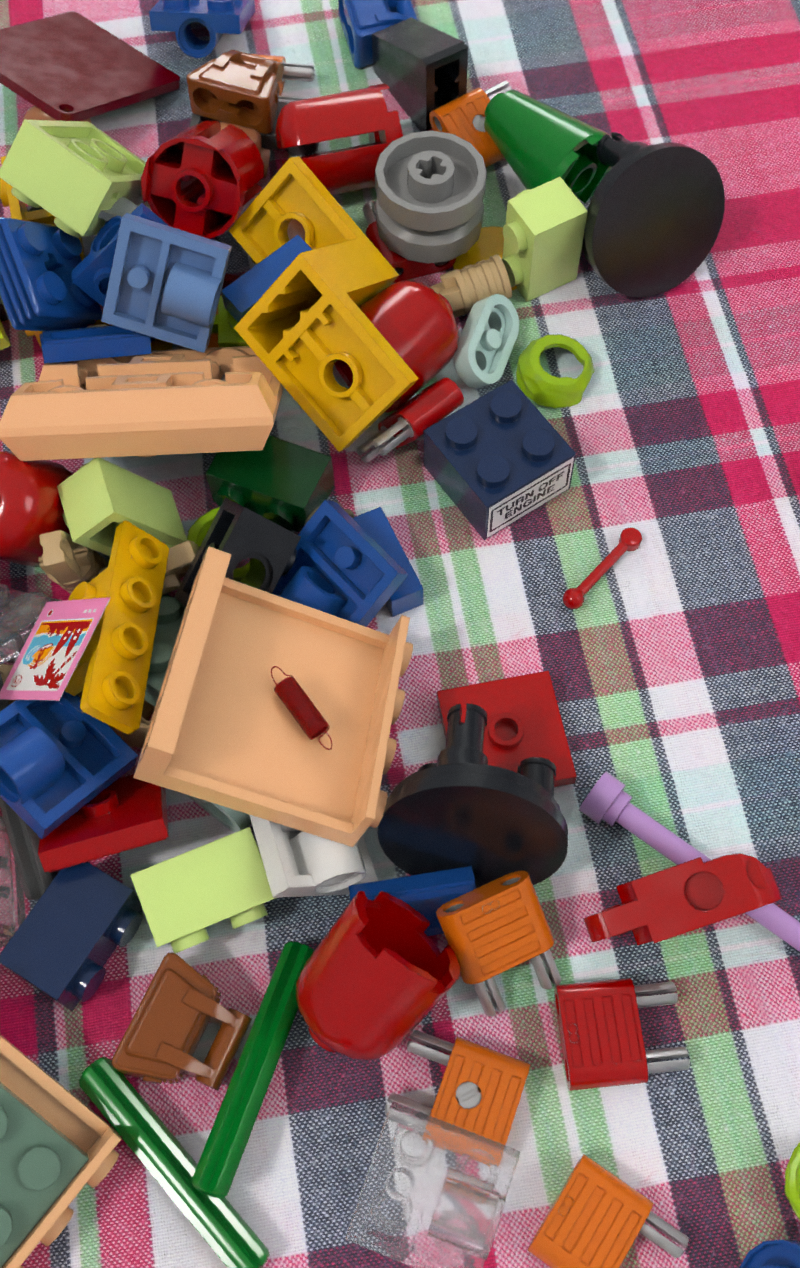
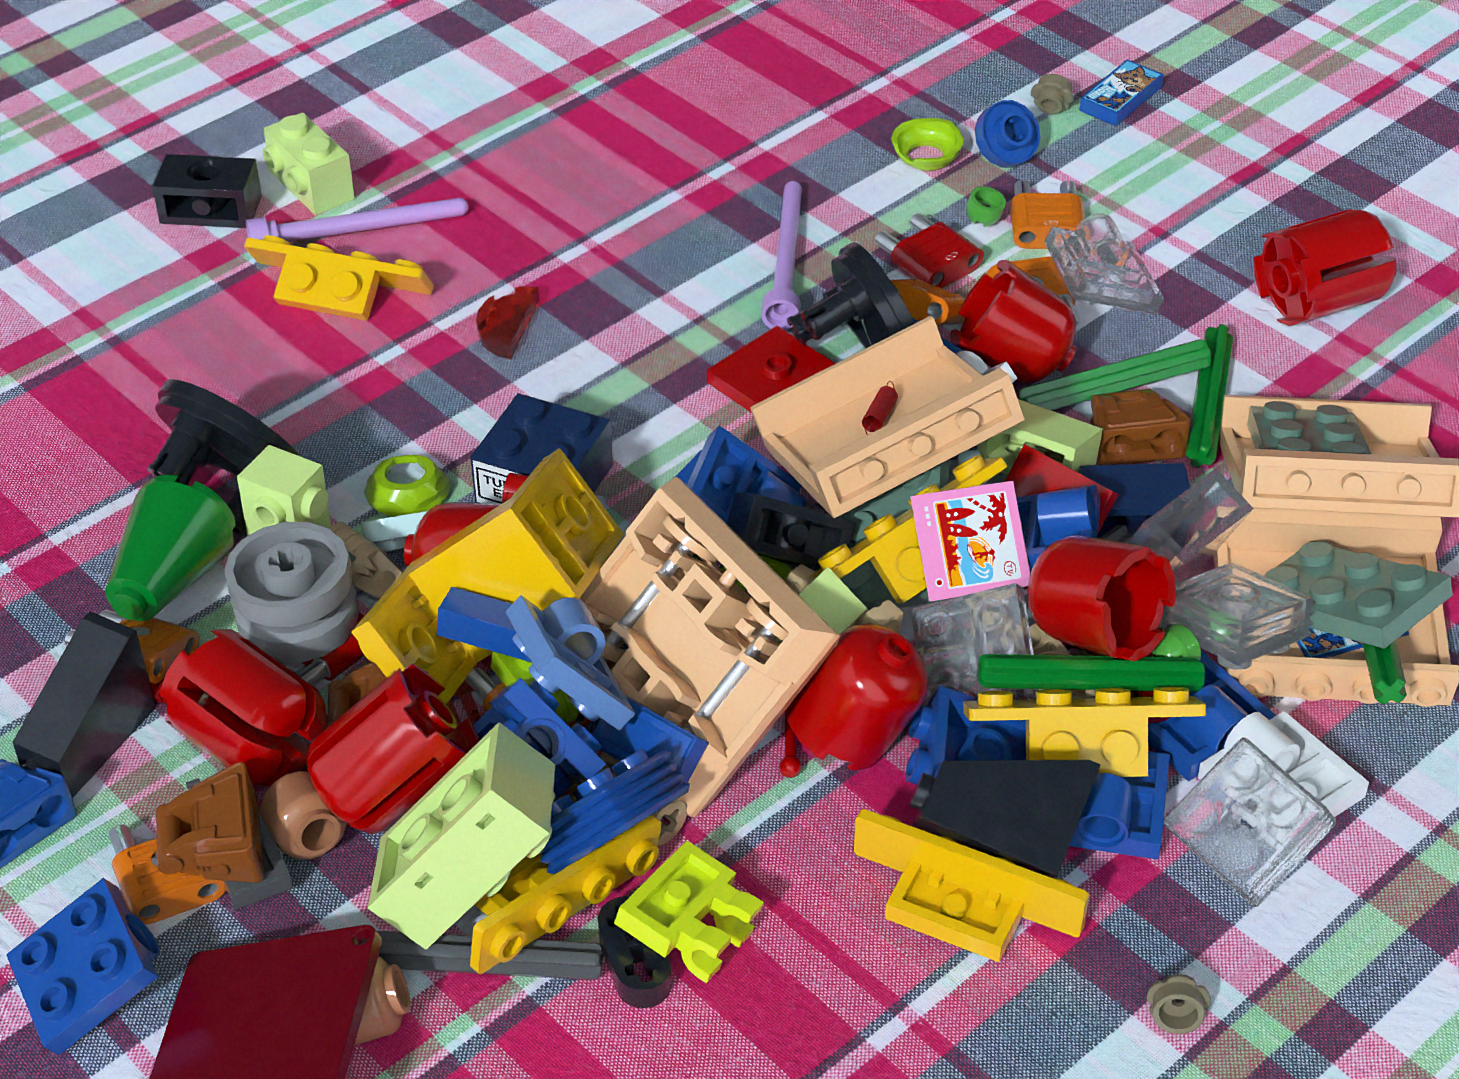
camera: 125 degrees left, 20 degrees down
(628, 541) = (548, 384): red hinge -> none
(647, 1168) = (988, 197): none -> bright green hinge
(686, 898) = (816, 226): red piece -> none
(749, 547) = (504, 320): none -> clear red tile

